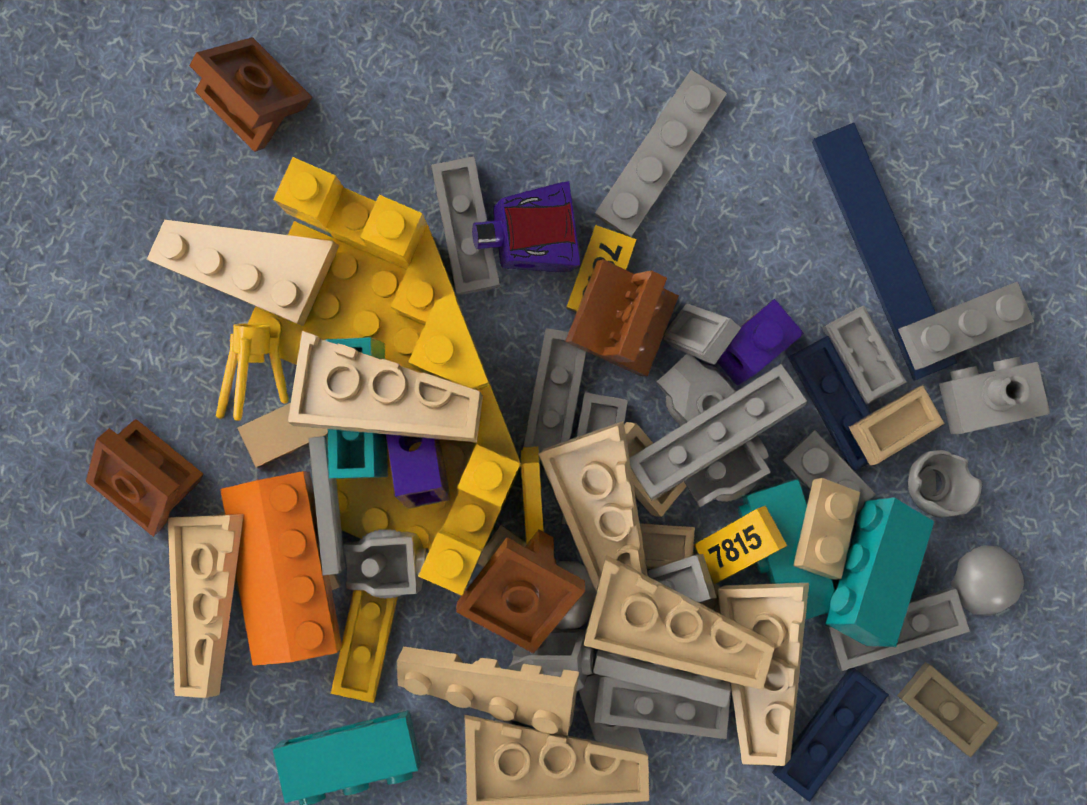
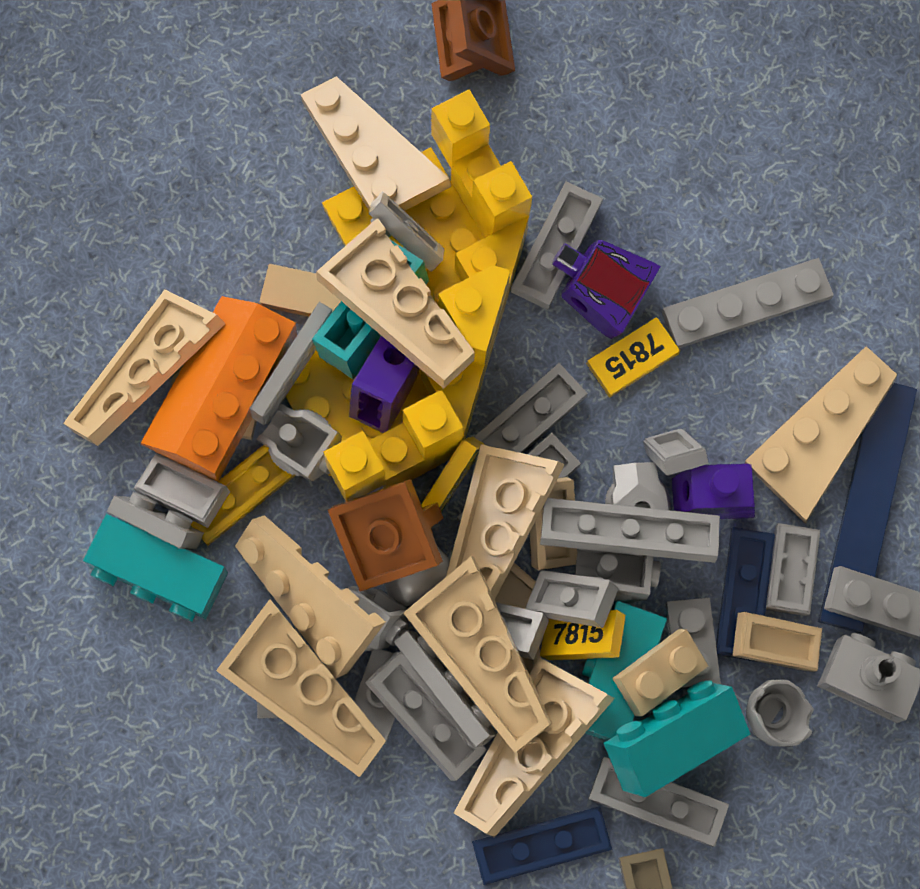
camera: 35 degrees right, 10 degrees down
(141, 475) = (170, 242): dark orange bracket -> none
(249, 345) = (326, 206): yellow plant -> none
(313, 722) = (170, 527): none -> light grey plate
(319, 677) = (182, 490): none -> light grey tile
(334, 318) = (406, 231): none -> light grey plate
(623, 317) = (625, 399): dark orange bracket -> none
(711, 524) = (572, 598): none -> light grey plate
(805, 227) = (816, 440): none -> tan wing
(988, 580) = (759, 821): light grey hair -> none

